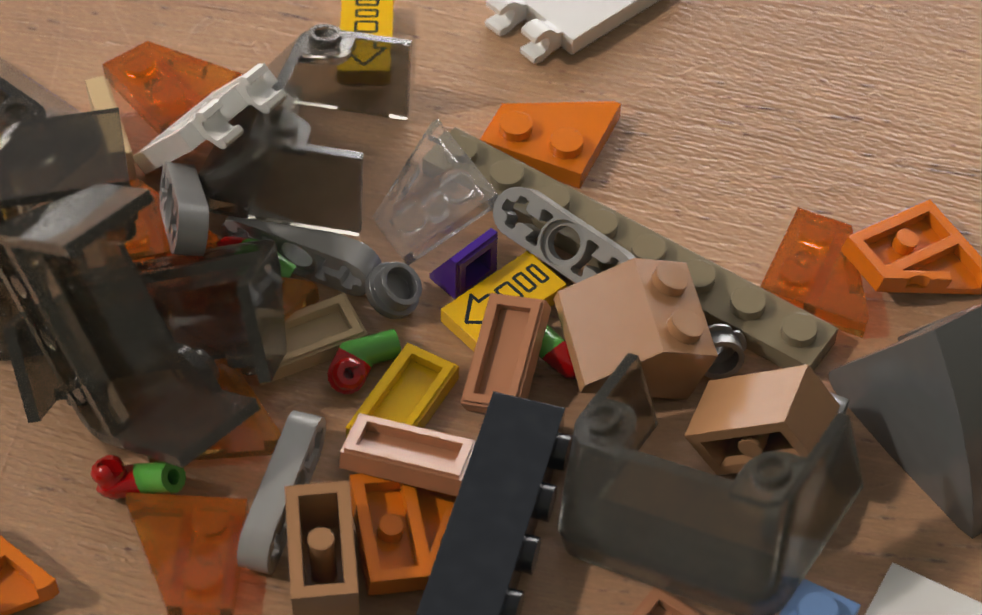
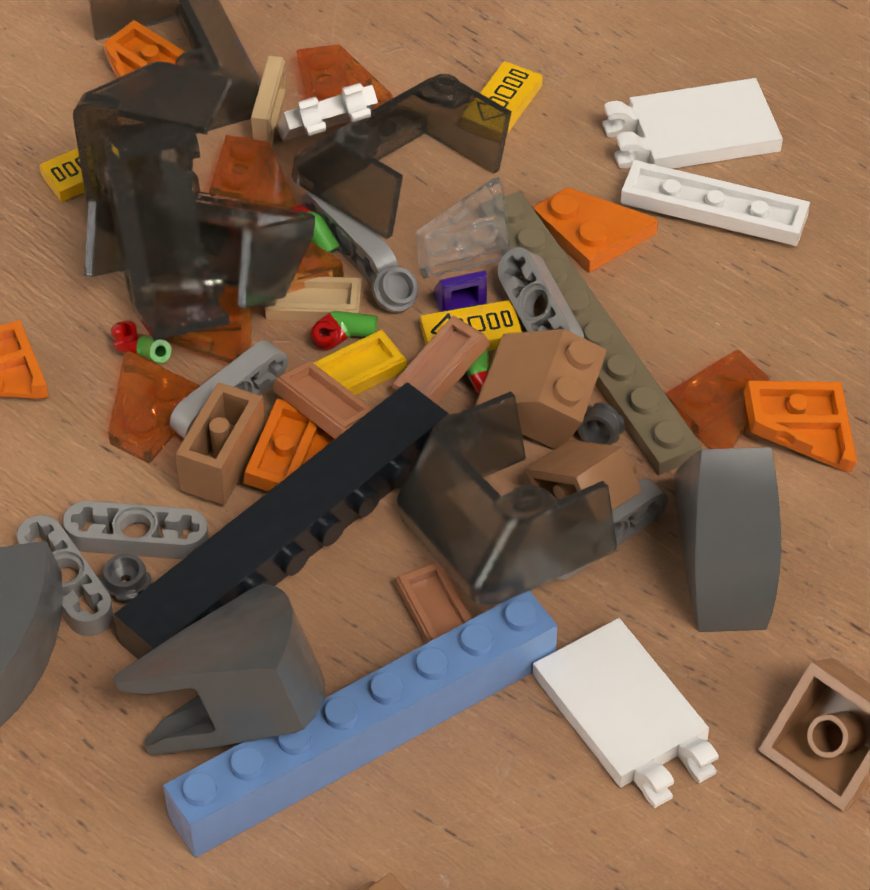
camera: 30 degrees right, 0 degrees up
(184, 209) = (270, 171): light grey beam -> none
(664, 62) = (715, 202): none -> white plate

